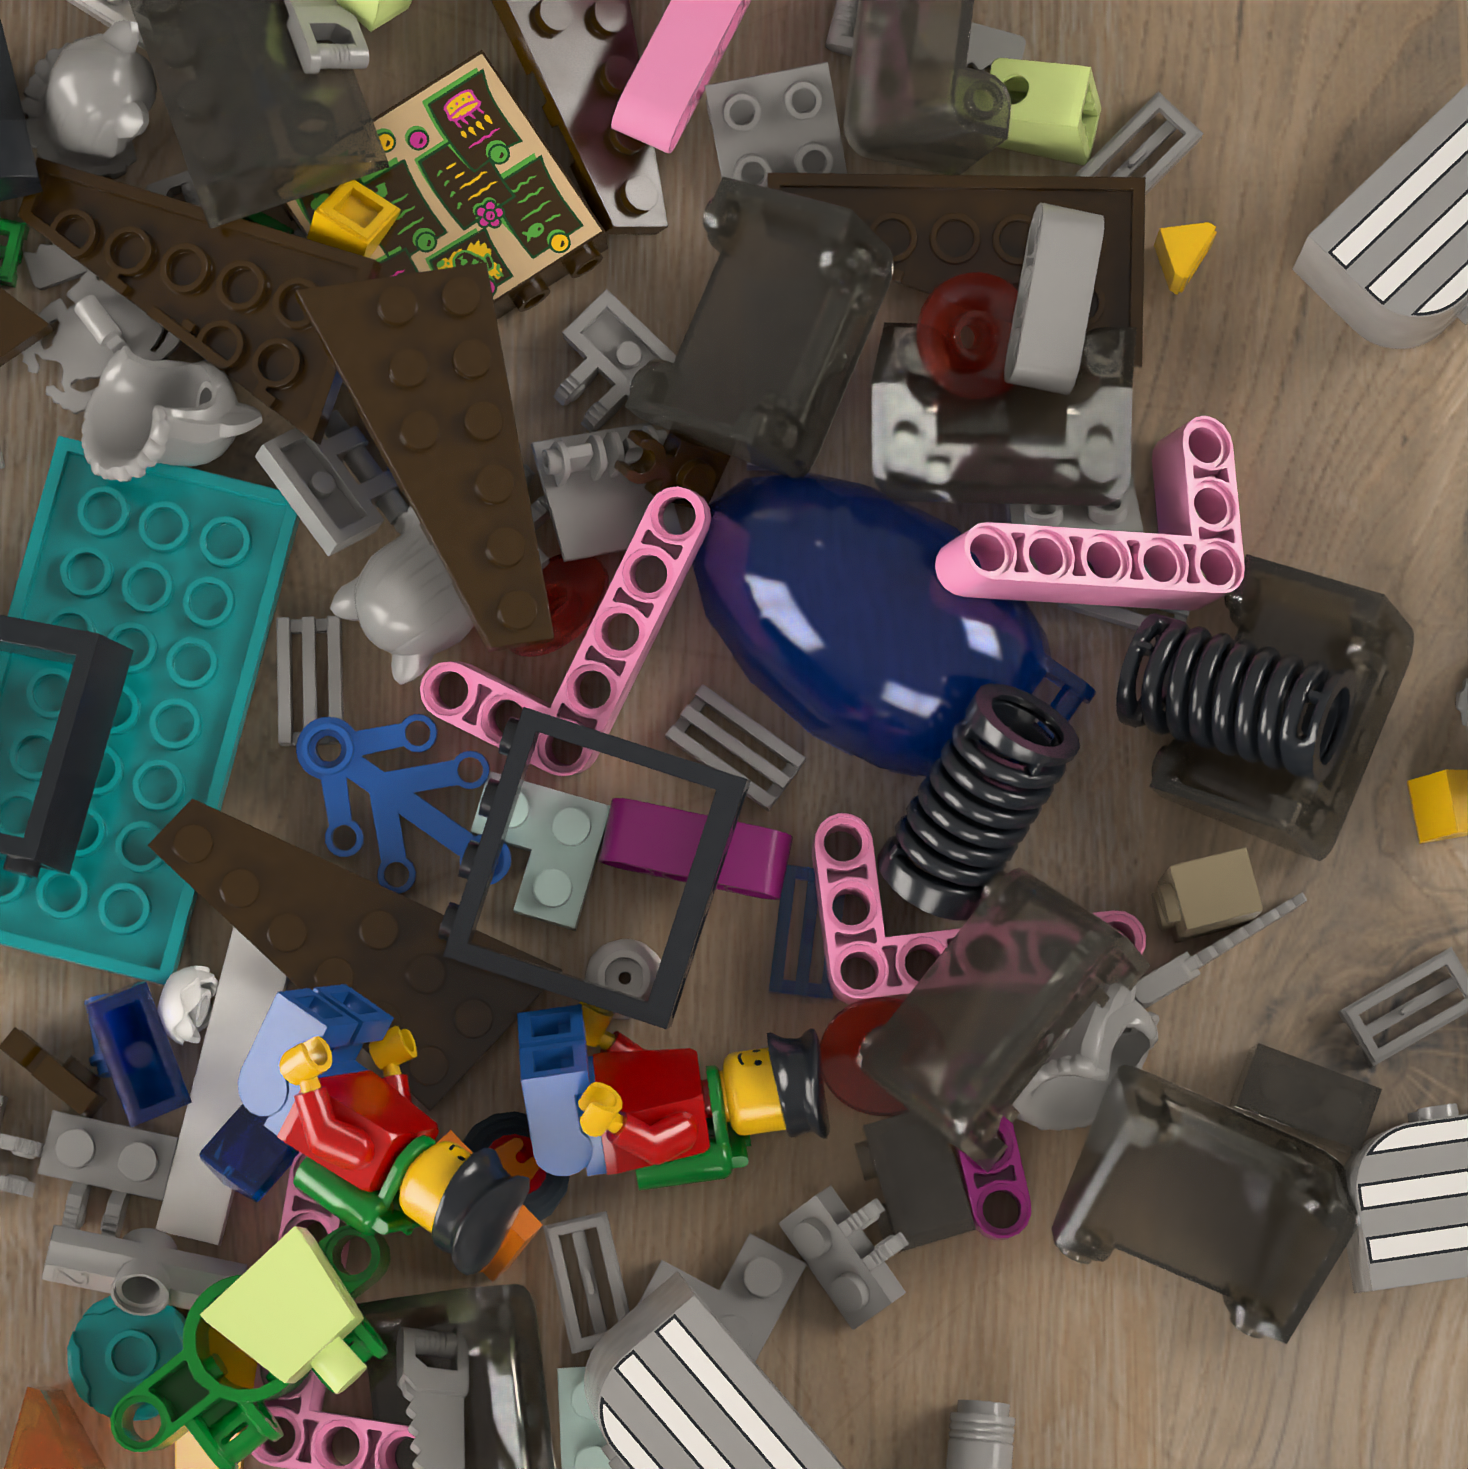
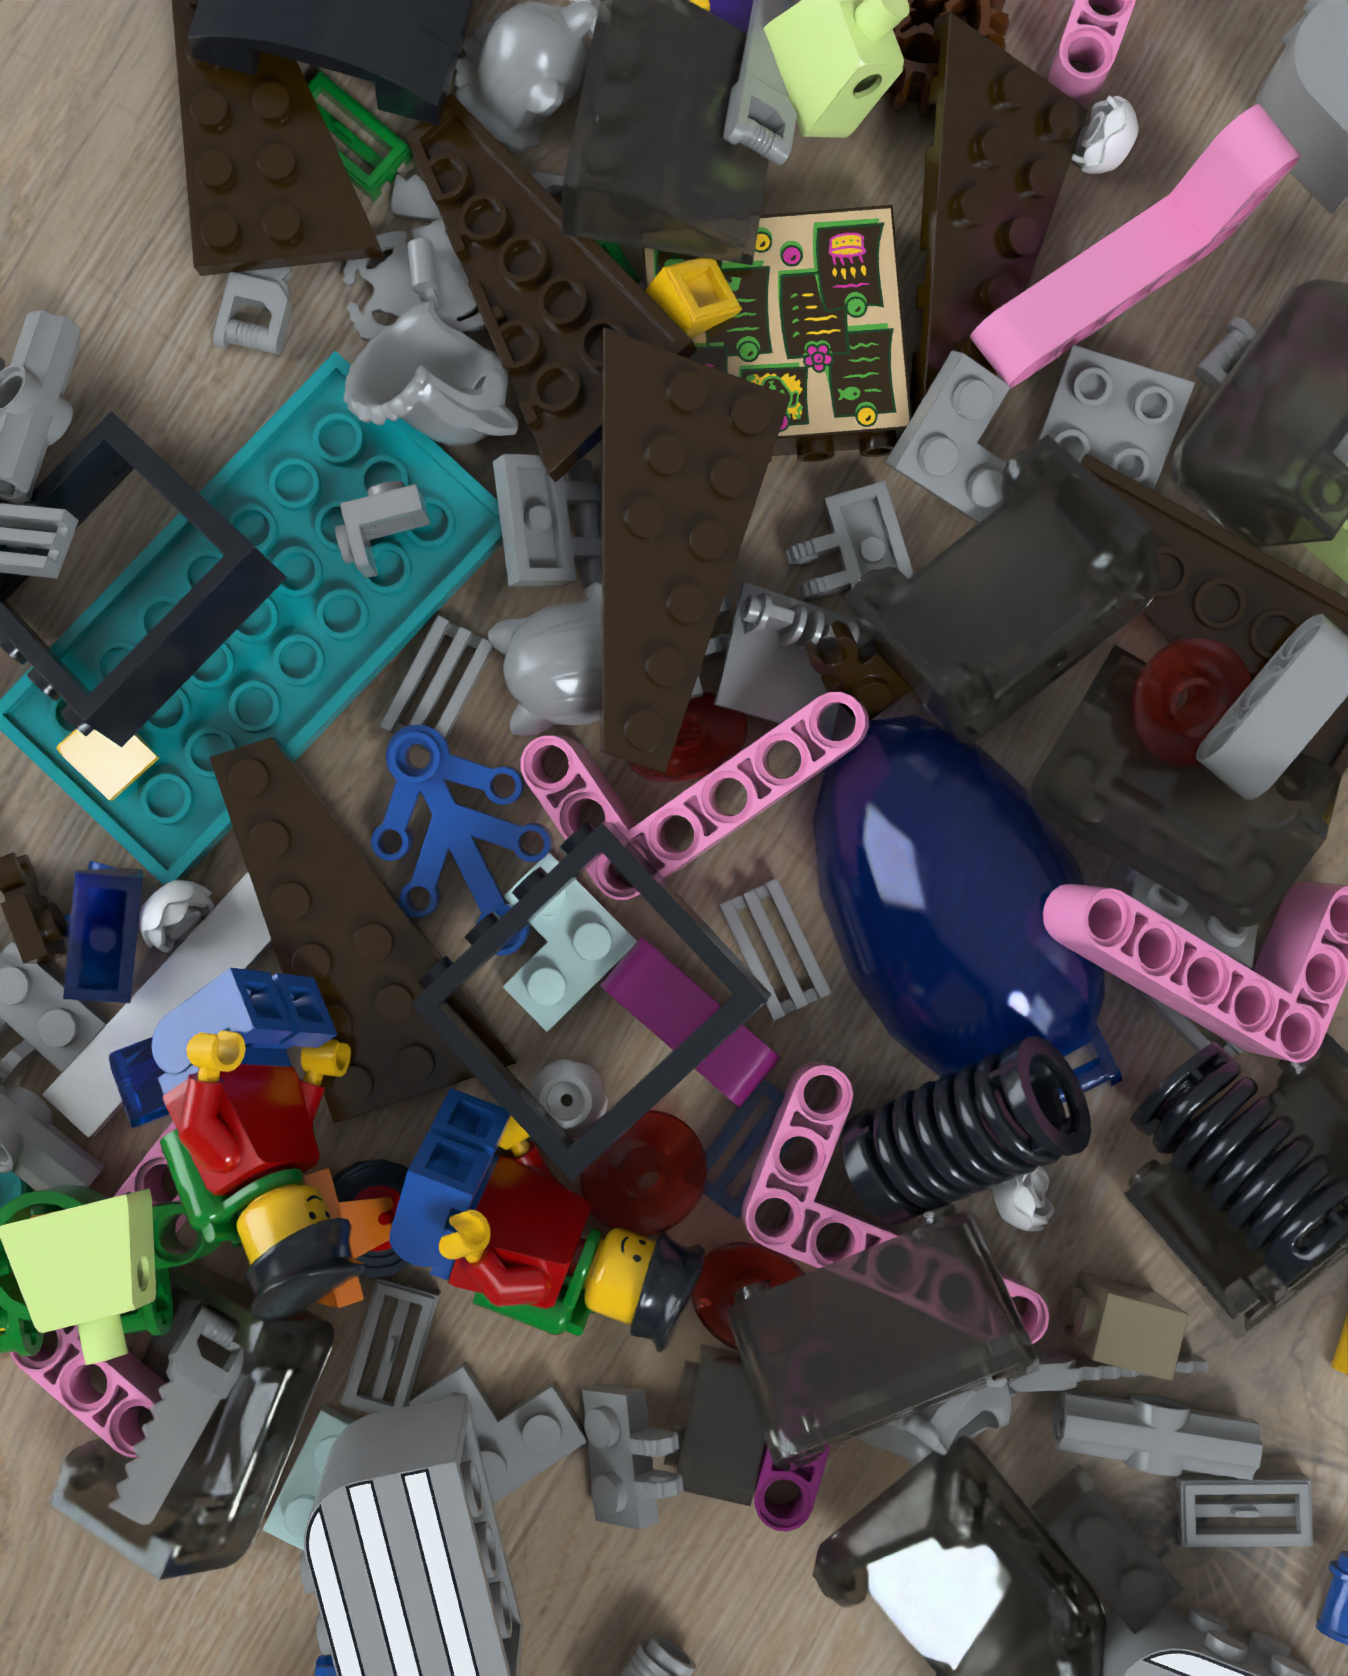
camera: 30 degrees right, 5 degrees up
(55, 897) = (106, 763): none -> slope
(183, 551) = (385, 511): none -> light grey bracket
(635, 225) = (942, 438): none -> light grey plate
(719, 978) = (652, 1144): none -> clear red dish
(1065, 836) = (1024, 1200): none -> white plate
(1296, 980) = (1156, 1434): none -> light grey piece

